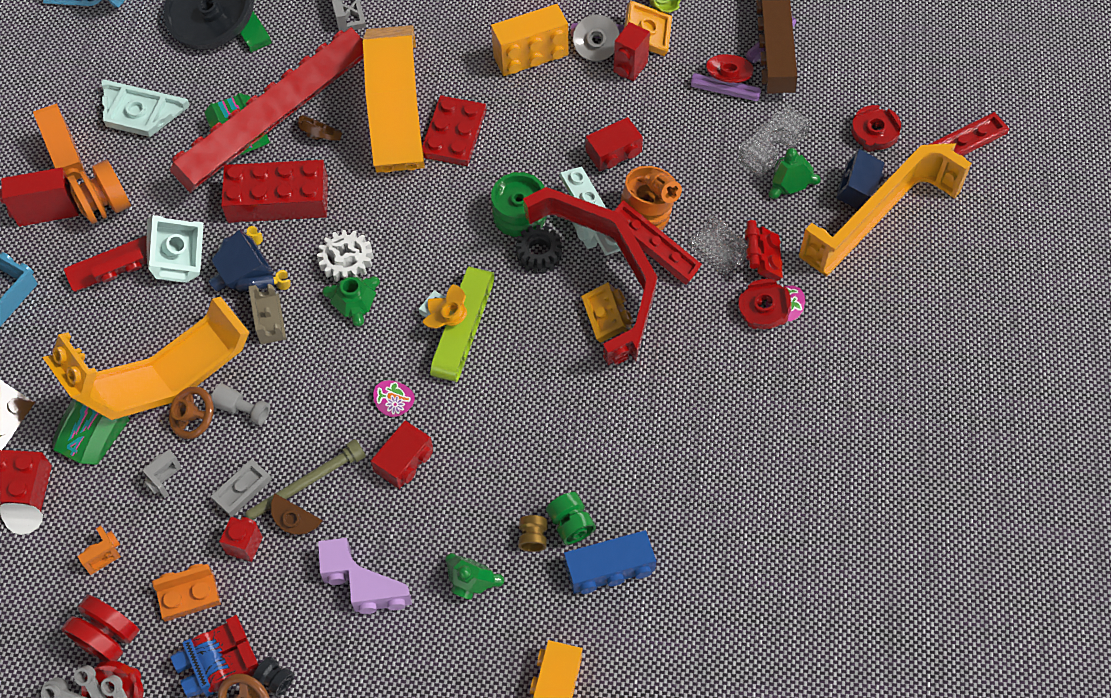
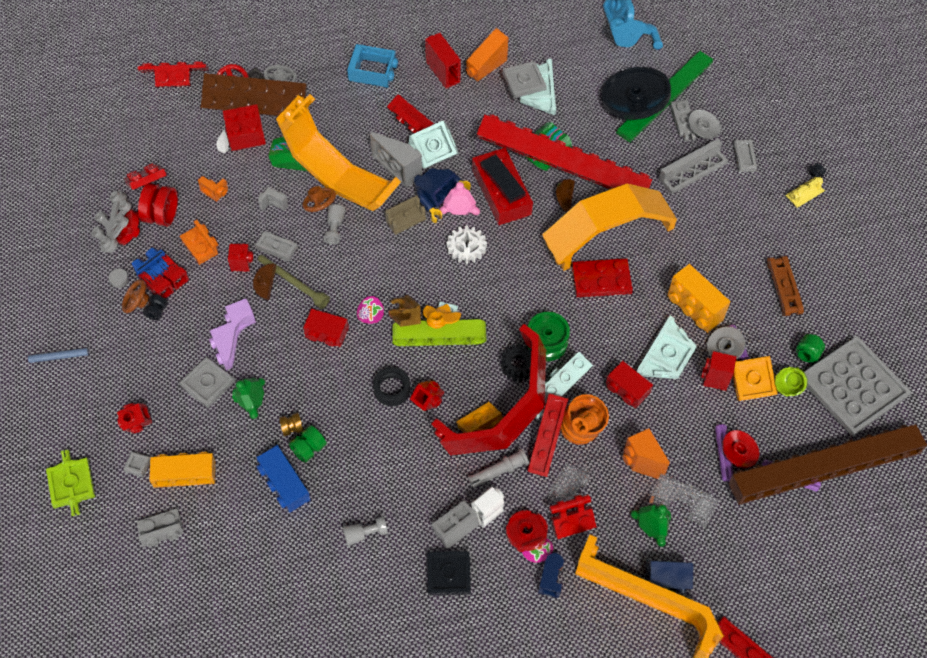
camera: 70 degrees right, 0 degrees up
(40, 638) = (149, 174): none -> red plate
(99, 192) = (458, 89): orange wheel -> none
(123, 115) = (524, 79): none -> light grey plate
(173, 296) = (397, 158): none -> light grey slope
(276, 177) = (503, 179): none -> black tile
(277, 243) = (459, 202): none -> bright pink rock
(353, 297) = (437, 261): green rock -> none
(423, 347) = (407, 313): none -> pearl gold hinge
(423, 632) = (207, 382): none -> light grey tile
(517, 380) = (393, 400): none -> black tyre
(551, 357) = (427, 395): none -> red brick
(582, 95) = (668, 353): none -> light aqua wing
(673, 301) = (507, 464): none -> light grey pin
(712, 153) = (645, 455): none -> orange slope
(713, 490) = (356, 533): none -> light grey piece
(728, 331) = (488, 506): none -> white brick
(735, 375) = (455, 524): none -> light grey hinge
(794, 402) = (449, 573): none -> black plate
(826, 296) = (552, 568): none -> dark blue leg
(875, 139) = (732, 590): red plate -> none

